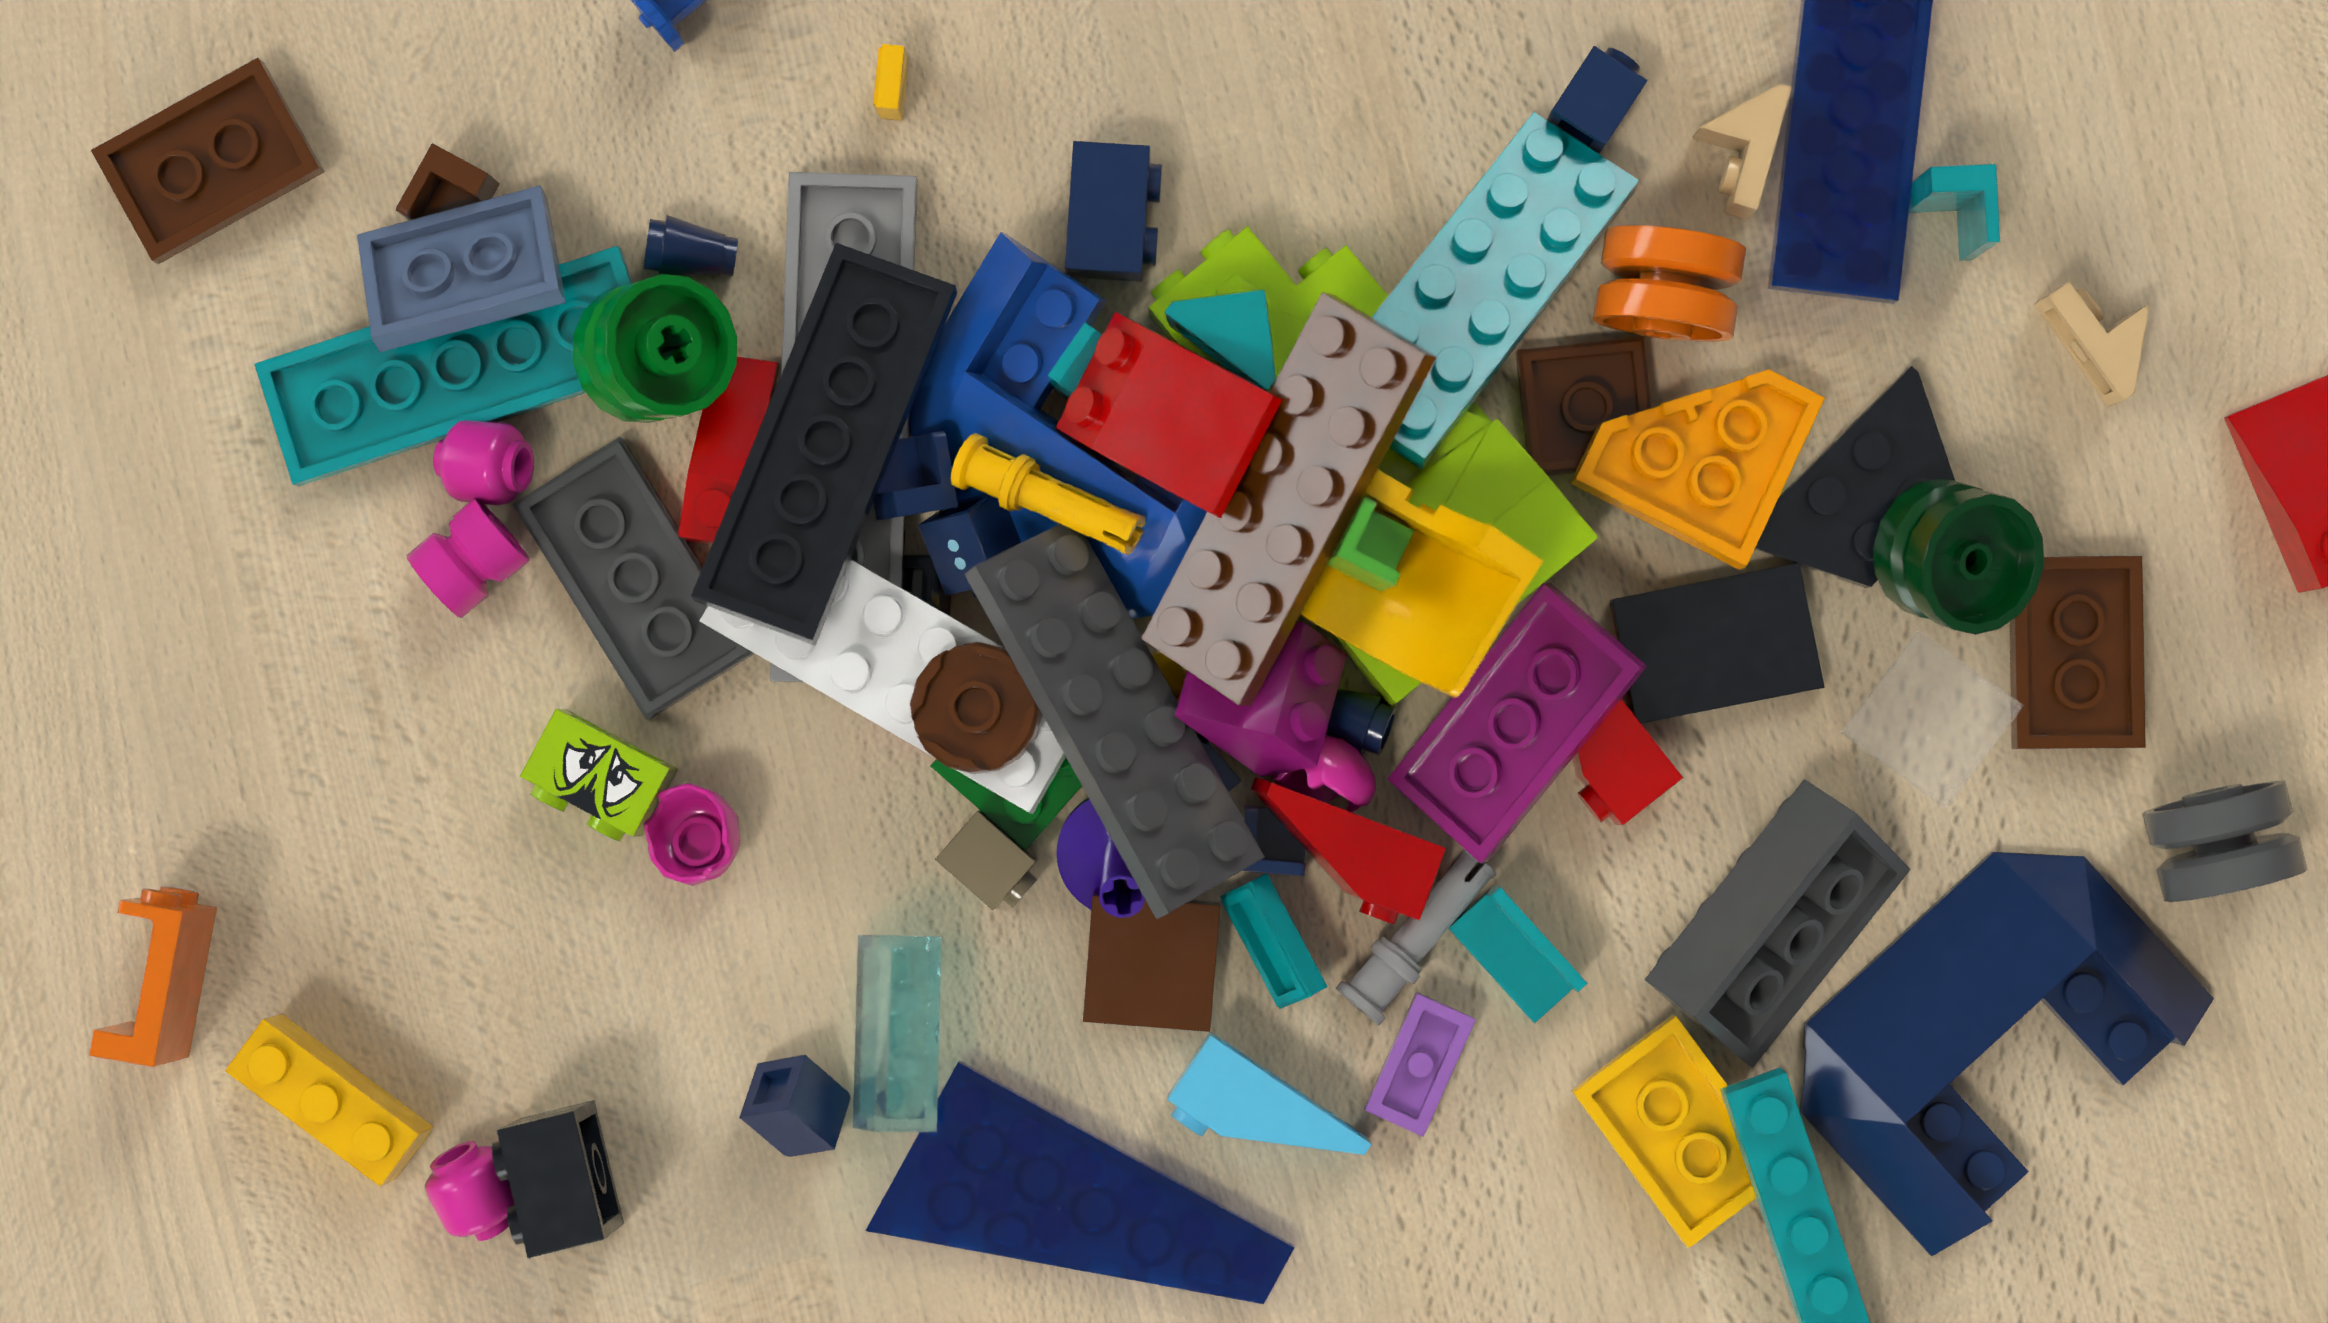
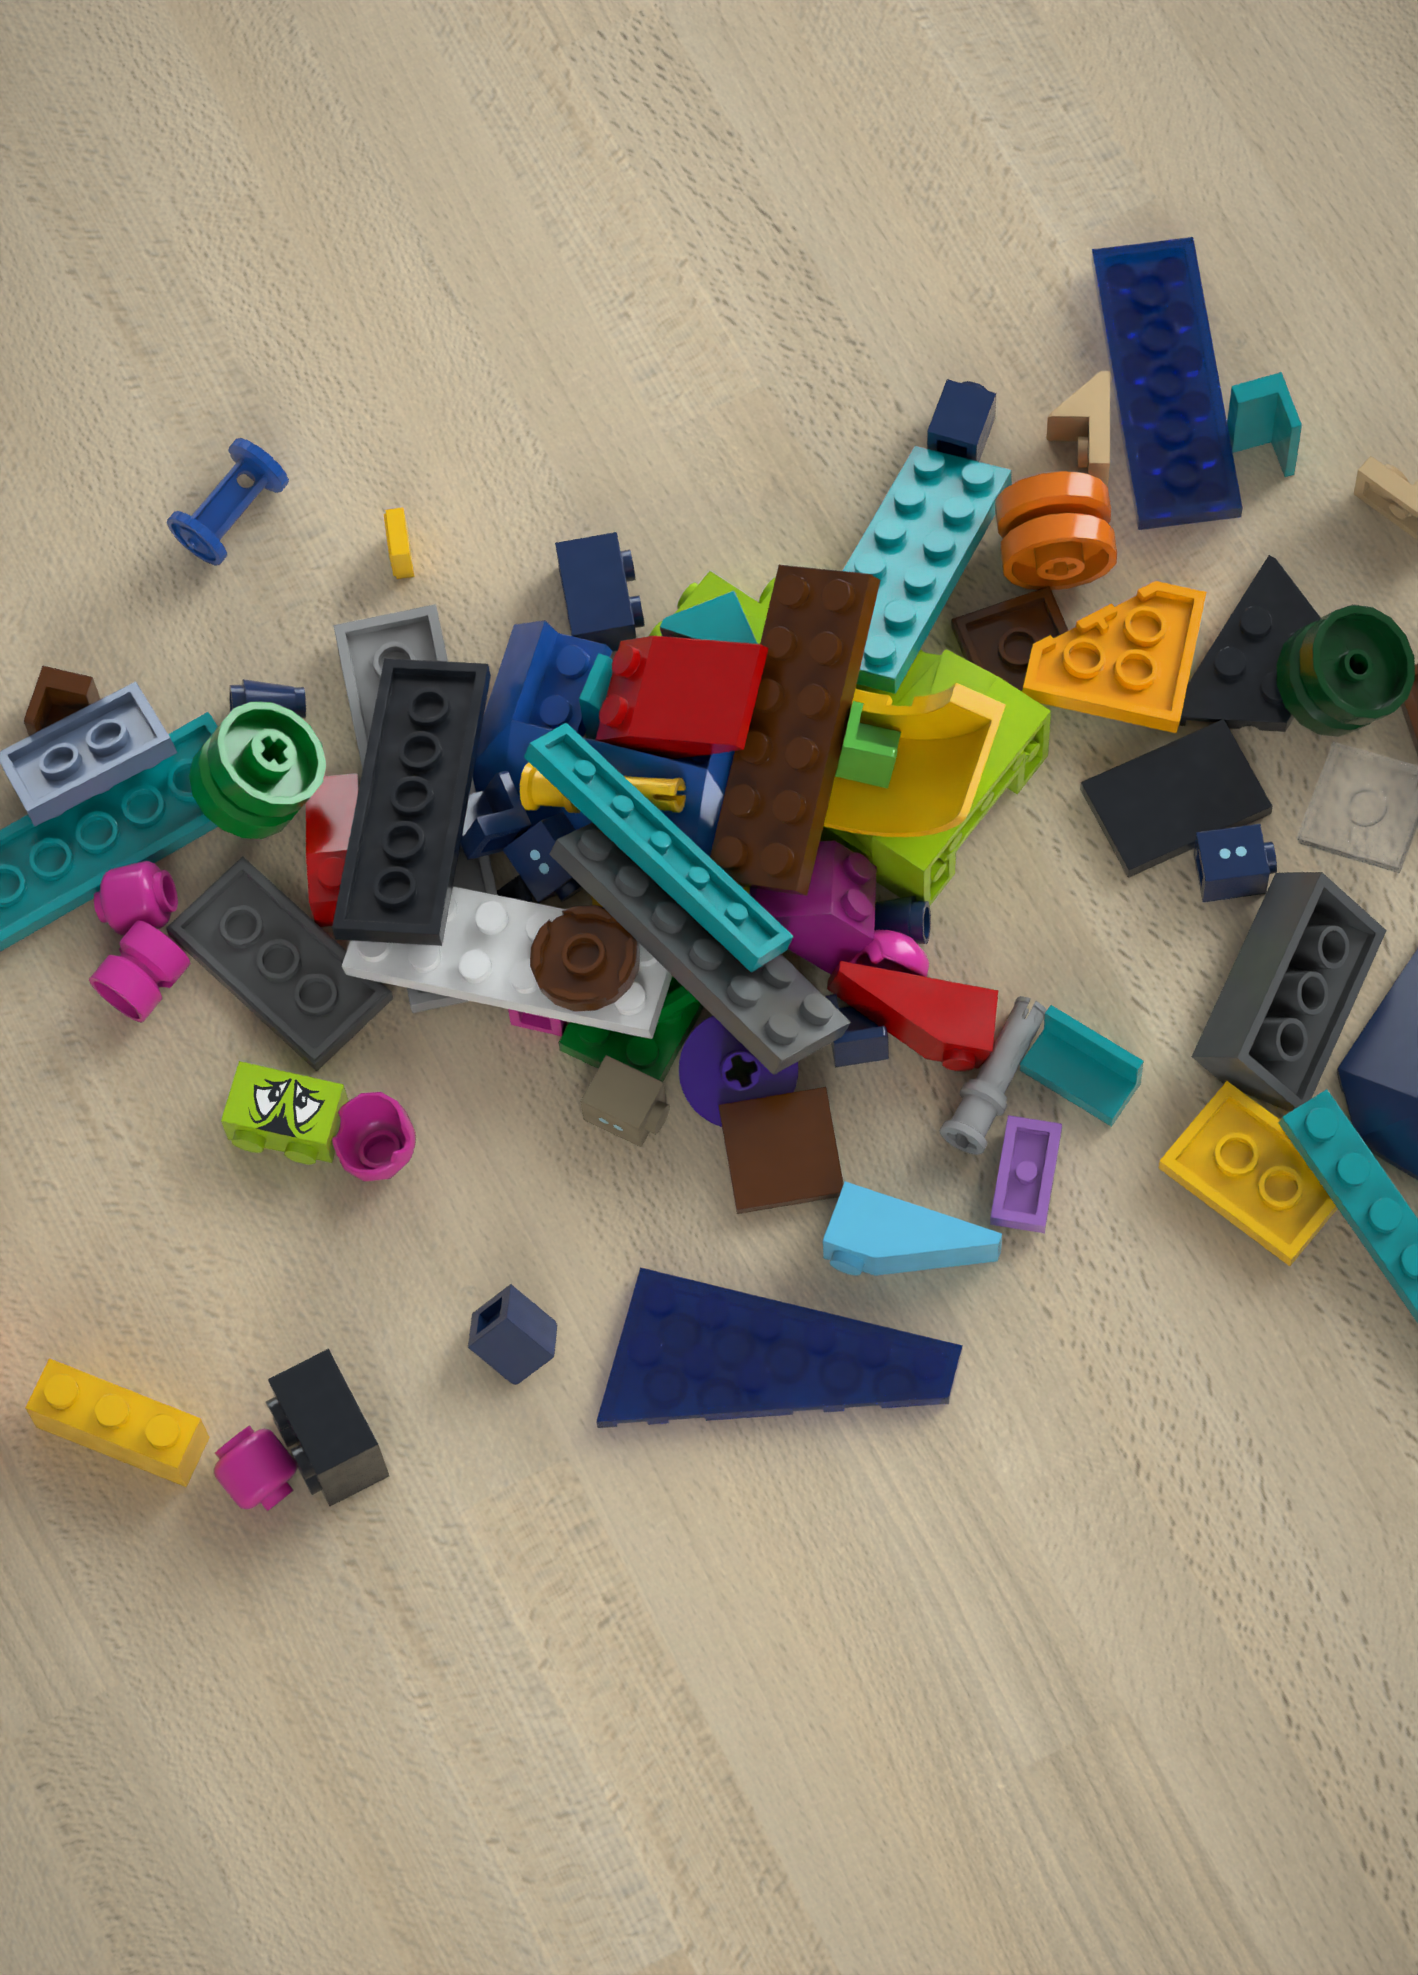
camera: 15 degrees left, 20 degrees down
(897, 1033) = (583, 1247): clear light blue brick -> none
(1091, 603) = (658, 847): none -> teal plate
(1273, 941) = (878, 1105): teal tile -> none
(1516, 722) = (1028, 880): magenta plate -> none
(1622, 768) = (1113, 891): red slope -> none
(1760, 748) = (1233, 862): none -> dark blue brick

